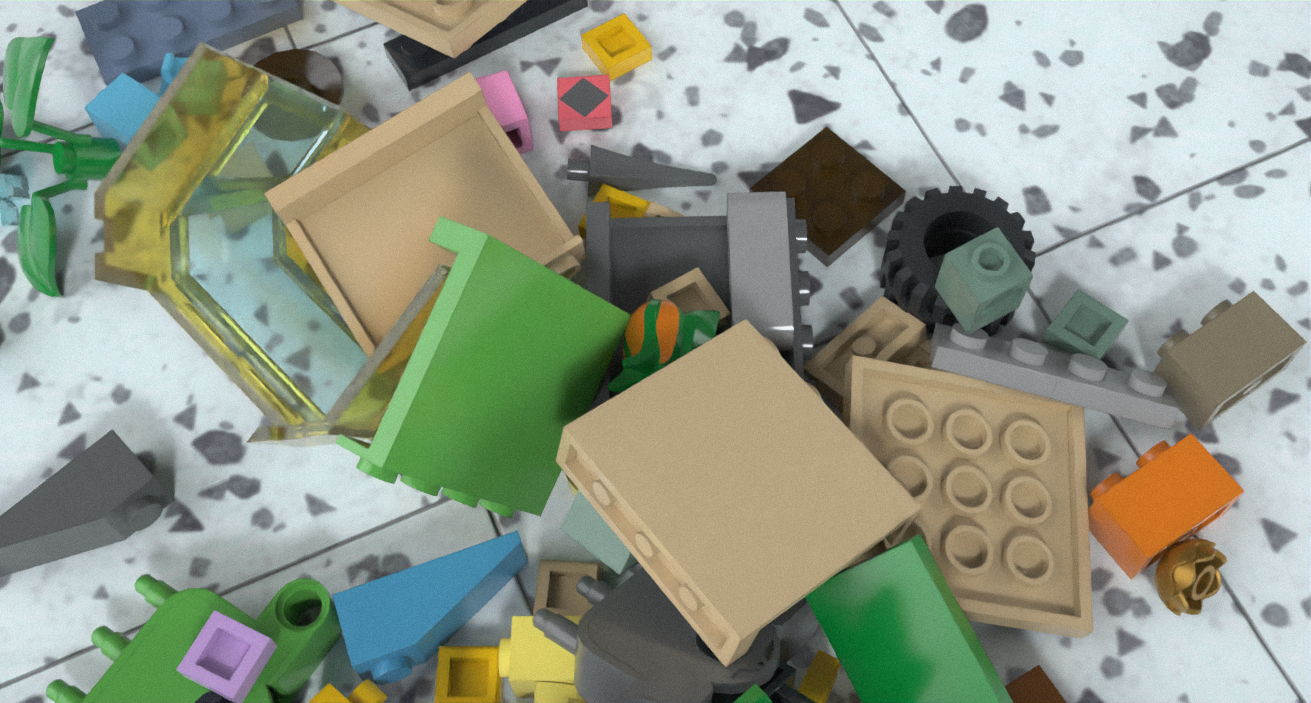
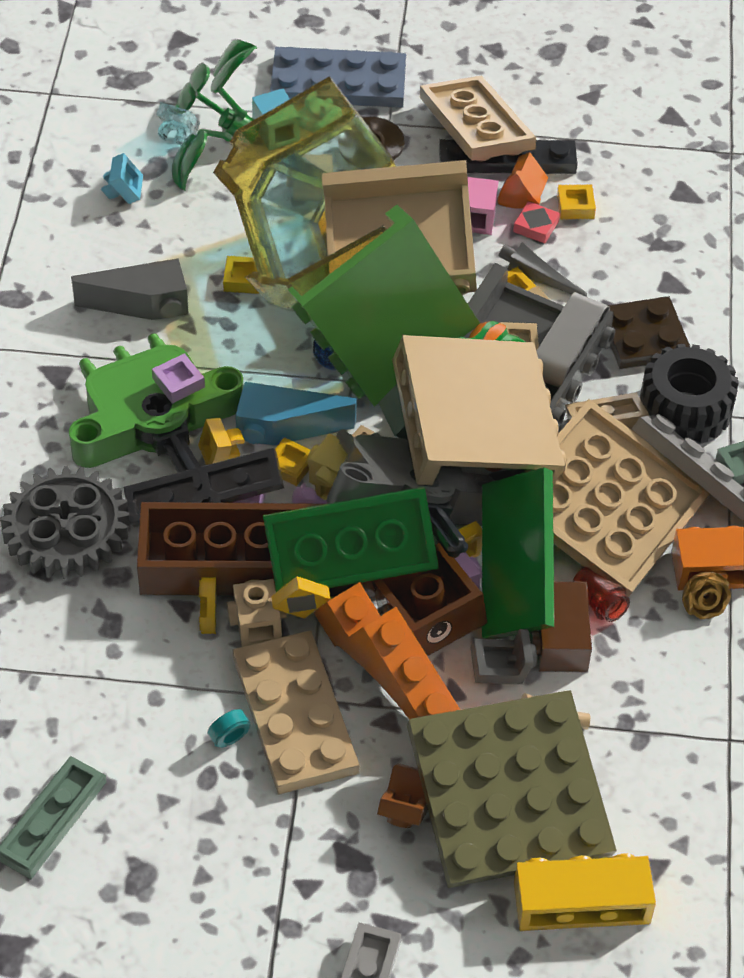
camera: 25 degrees right, 10 degrees down
(217, 398) = (235, 272): none -> yellow tile
(538, 56) = (523, 184): none -> orange tile
(983, 280) = (681, 391): sand green brick -> none
(1062, 656) = (605, 597): none -> clear red cone

